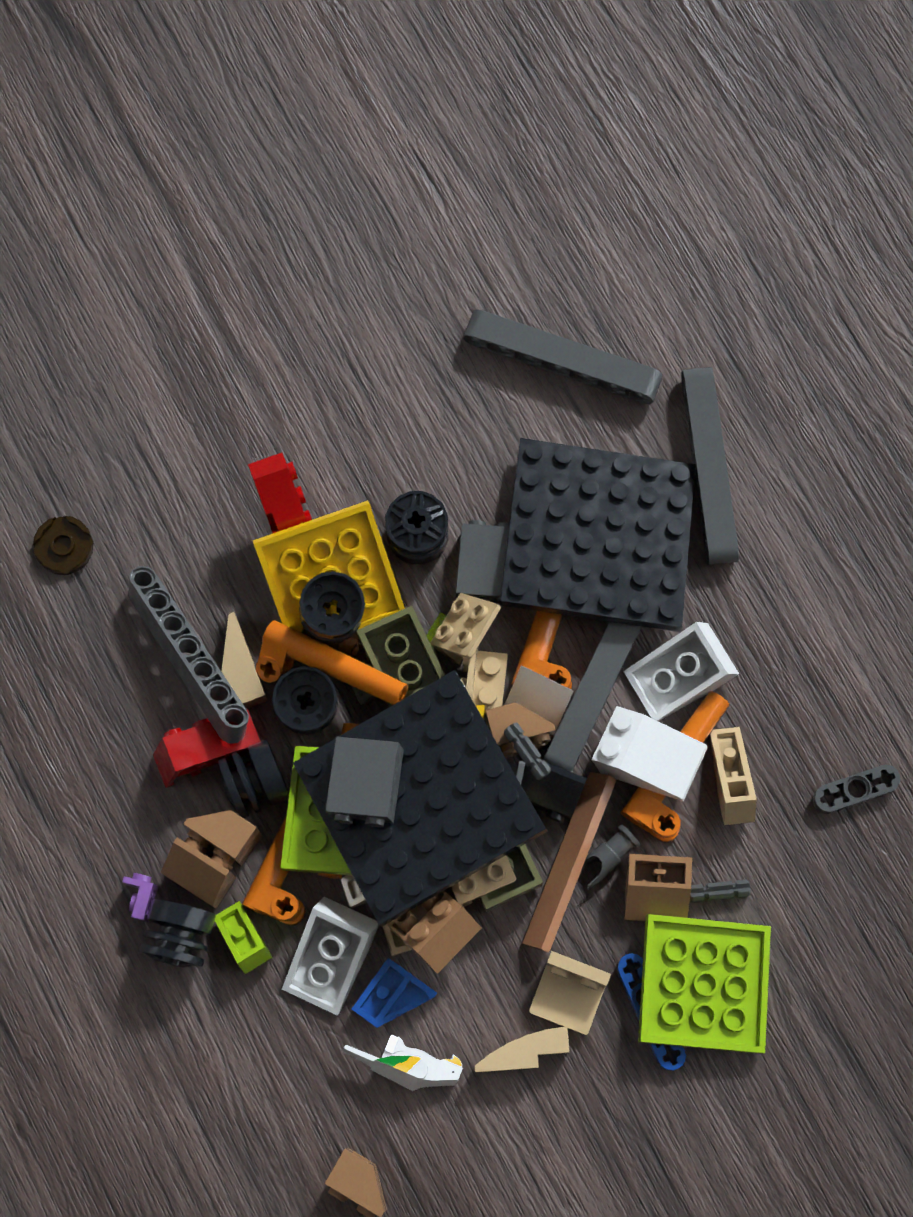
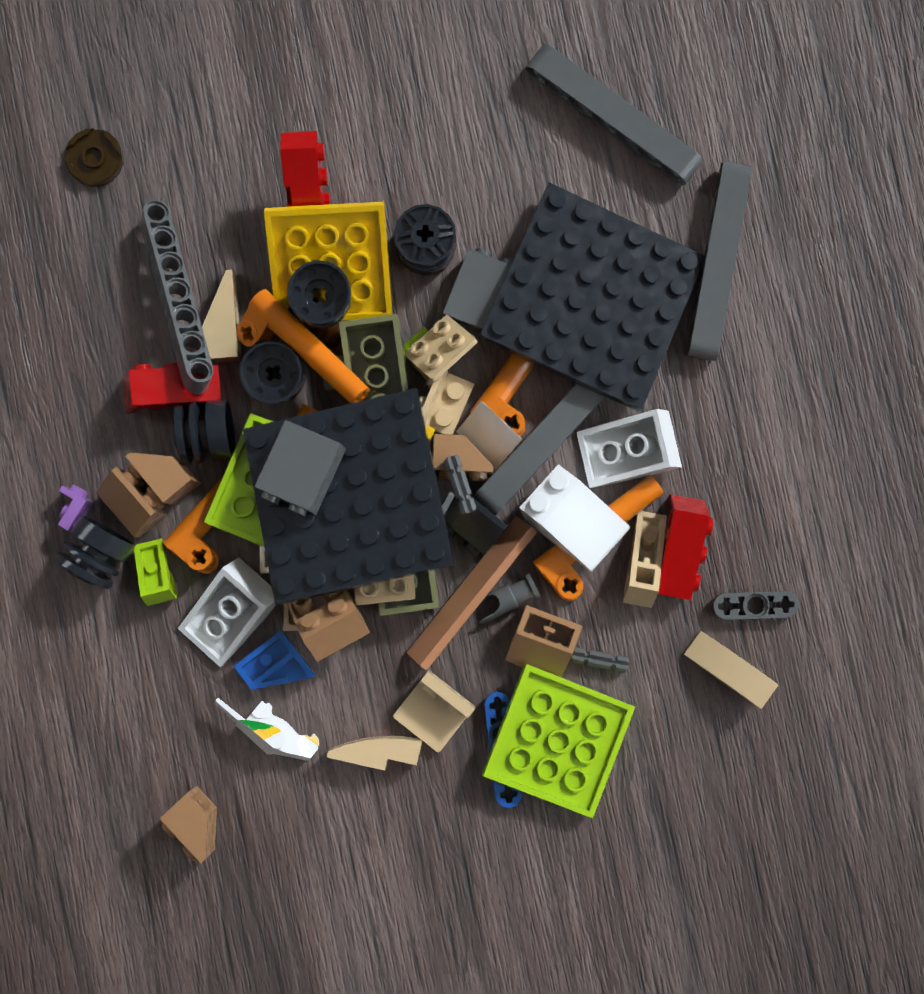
camera: 15 degrees right, 10 degrees up
(767, 751) = (684, 546): none -> red wedge
(854, 860) = (731, 669): none -> tan slope

